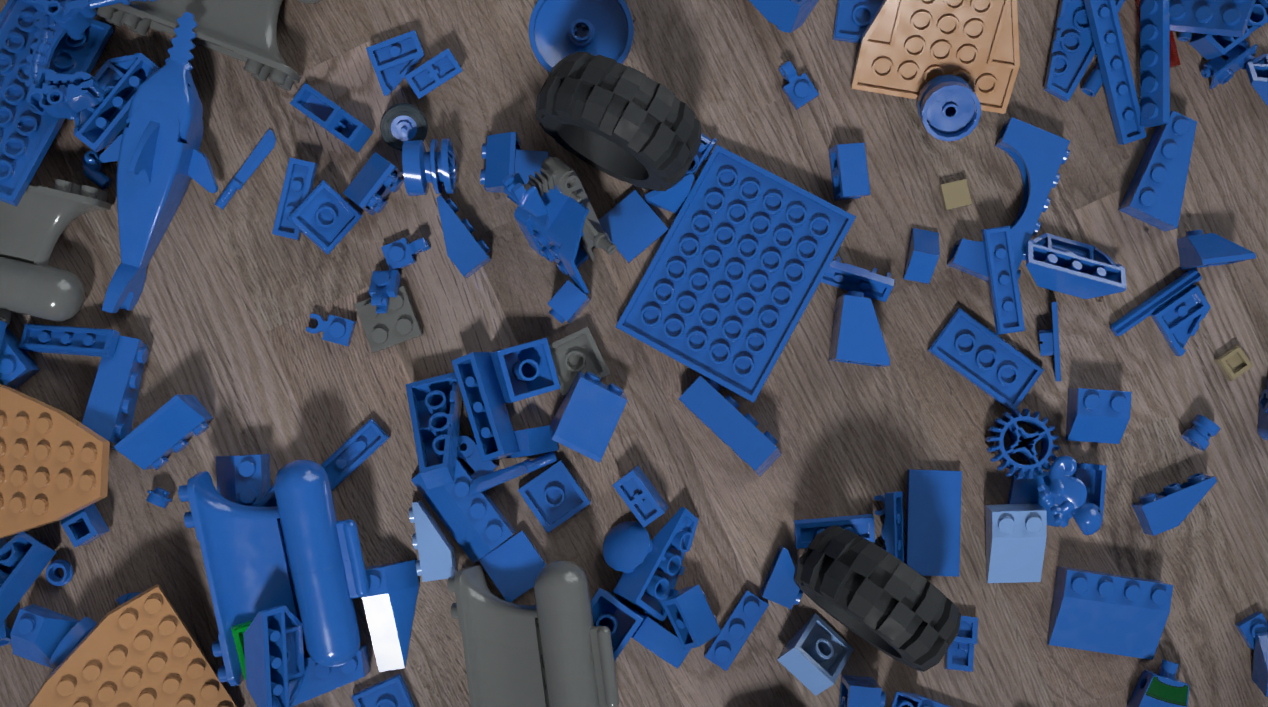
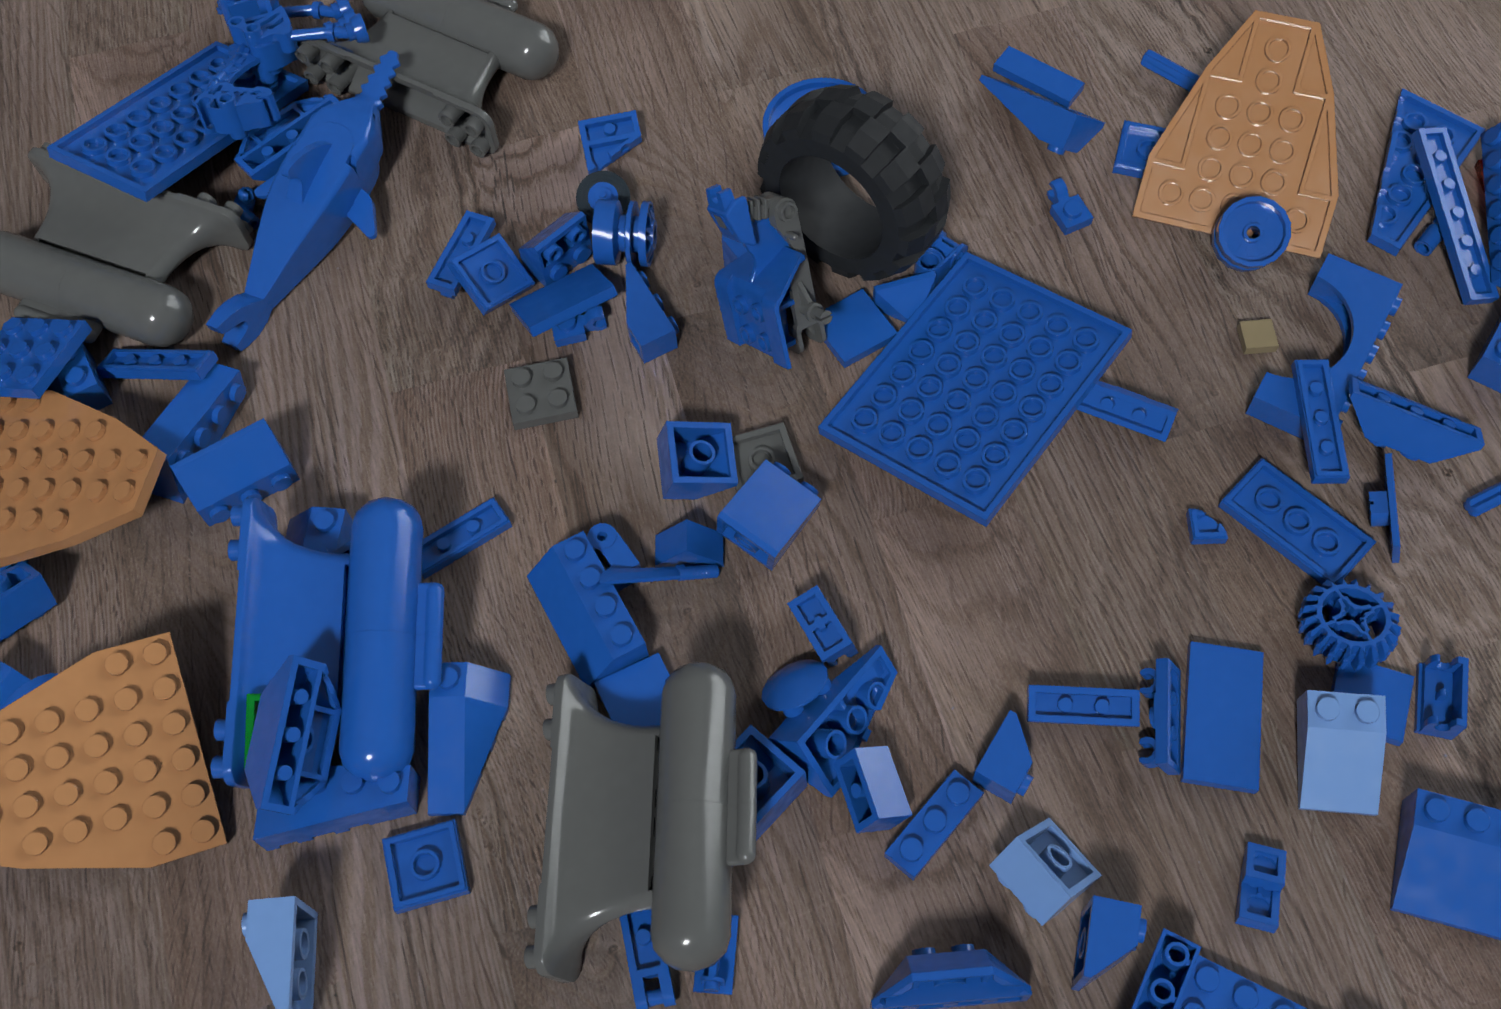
camera: 10 degrees right, 25 degrees down
(52, 572) = (46, 624): blue plate -> none
(84, 526) = (103, 566): blue slope -> none
(159, 497) = (205, 555): blue plate -> none
(257, 156) = (416, 226): blue piece -> none
(331, 117) = (525, 185): blue slope -> none
(335, 329) = (473, 398): blue plate -> none
(382, 287) = (542, 352): blue plate -> none
(389, 234) = (563, 300): none -> blue tile
(433, 73) = (646, 149): blue hinge -> none
(434, 549) = (535, 655): medium blue slope -> none
(435, 419) = (574, 497): blue wedge -> none
(485, 406) = (639, 491): blue brick -> none
(500, 160) = (704, 251): blue slope -> none
(554, 496) = (708, 618): blue tile -> none
(568, 303) = (764, 386): blue brick -> none
(660, 641) = (826, 823): blue slope -> none
(730, 425) = (956, 556): blue wedge -> none
(849, 171) = (1126, 293): blue hinge -> none
(857, 333) = (1129, 464): blue slope -> none
(878, 597) = (1144, 760): black tyre -> none
(917, 372) = (1204, 529): none -> blue tile
(922, 256) = (1213, 398): blue slope -> none
(1068, 497) = (1417, 684): blue animal -> none
(1097, 415) = (1452, 602): blue slope -> none

